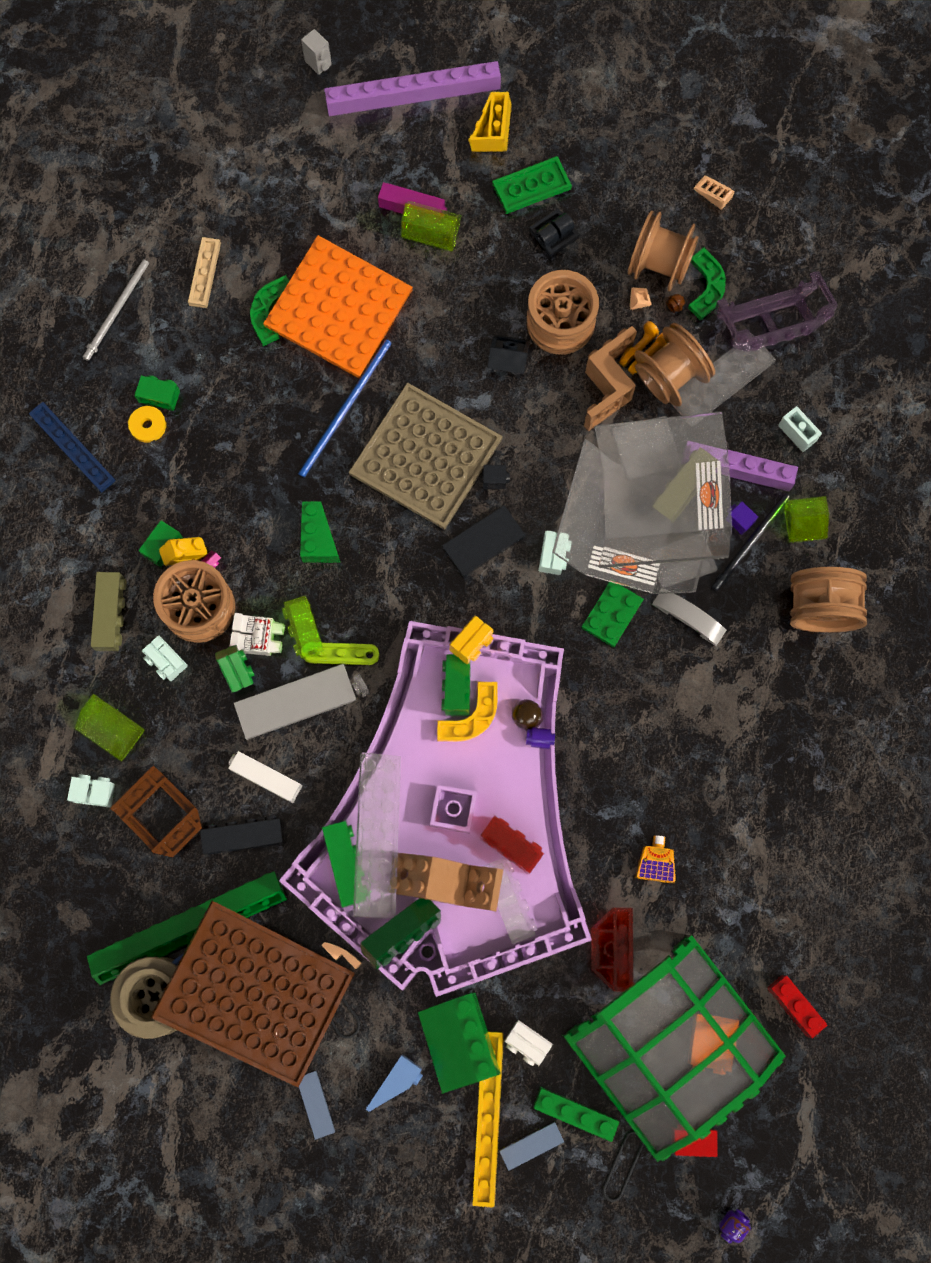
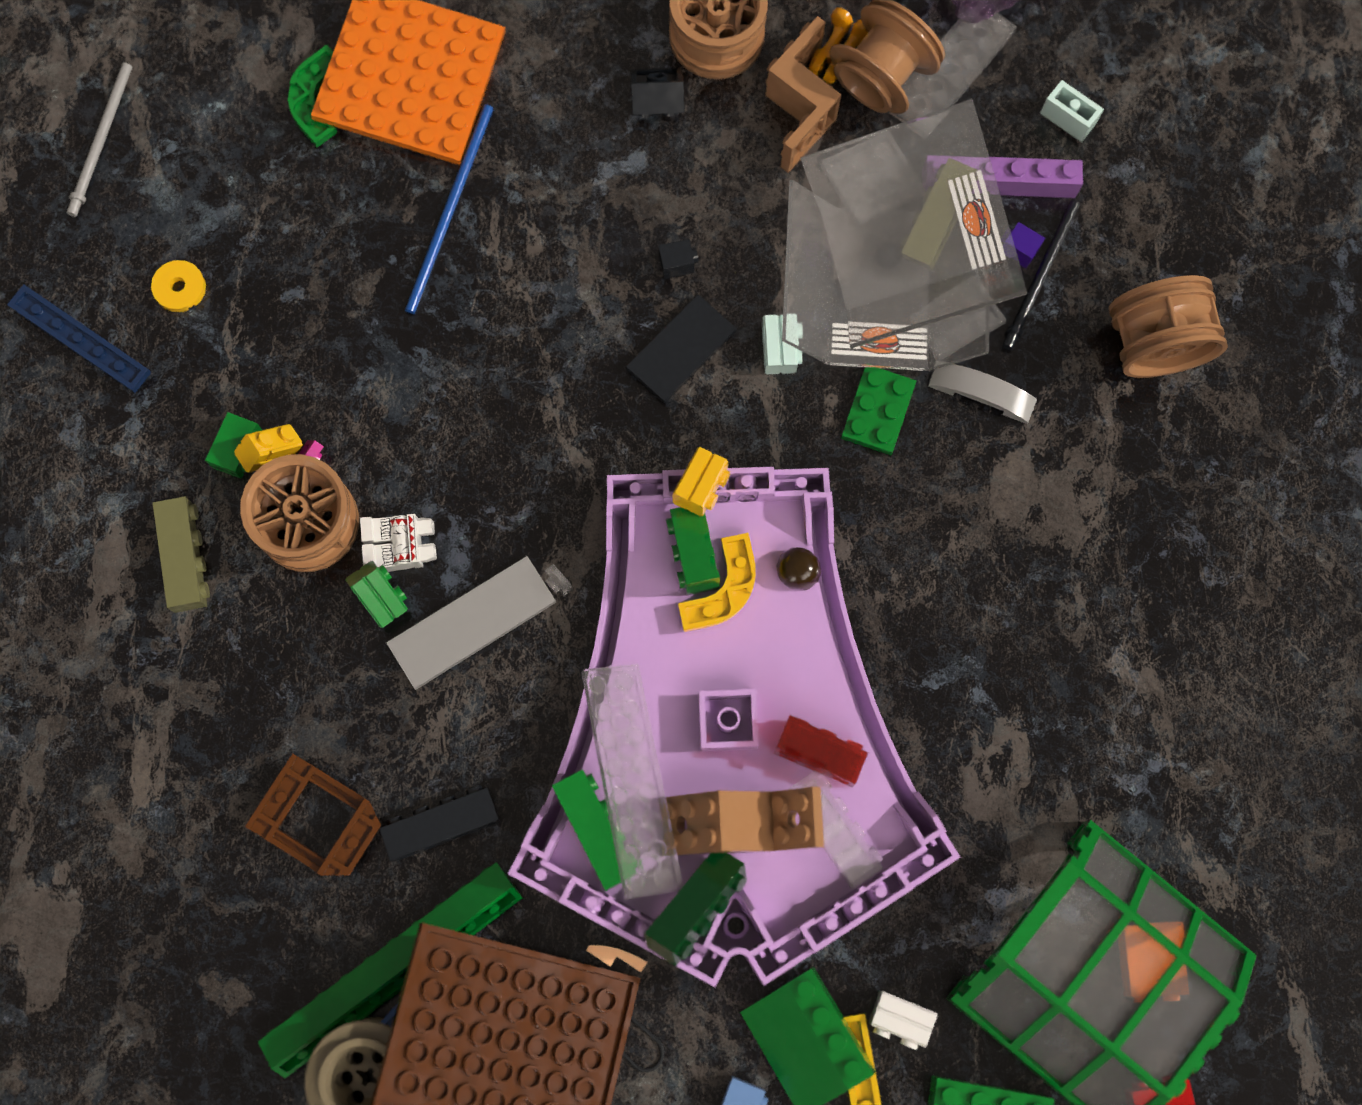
camera: 15 degrees left, 0 degrees up
(91, 792) = (212, 810): light aqua piece -> none
(108, 727) = (216, 715): clear neon green slope -> none
(157, 392) = (183, 239): green brick -> none
(164, 658) = (275, 602): light aqua brick -> none
(204, 272) = (212, 64): tan plate -> none
(264, 776) = (452, 734): white brick -> none
(303, 627) = (460, 517): clear neon green wedge -> none
(316, 537) = (450, 389): green wedge -> none
(346, 654) = (519, 542): lime plate -> none
(426, 455) = (575, 250): dark tan plate -> none
(540, 738) = (824, 596): dark purple brick -> none
(613, 948) = (990, 863): clear red wedge -> none
(656, 862) = (1018, 732): torso -> none
(797, 1006) = (1254, 884): red brick -> none
(807, 519) = (1109, 228): clear neon green slope -> none

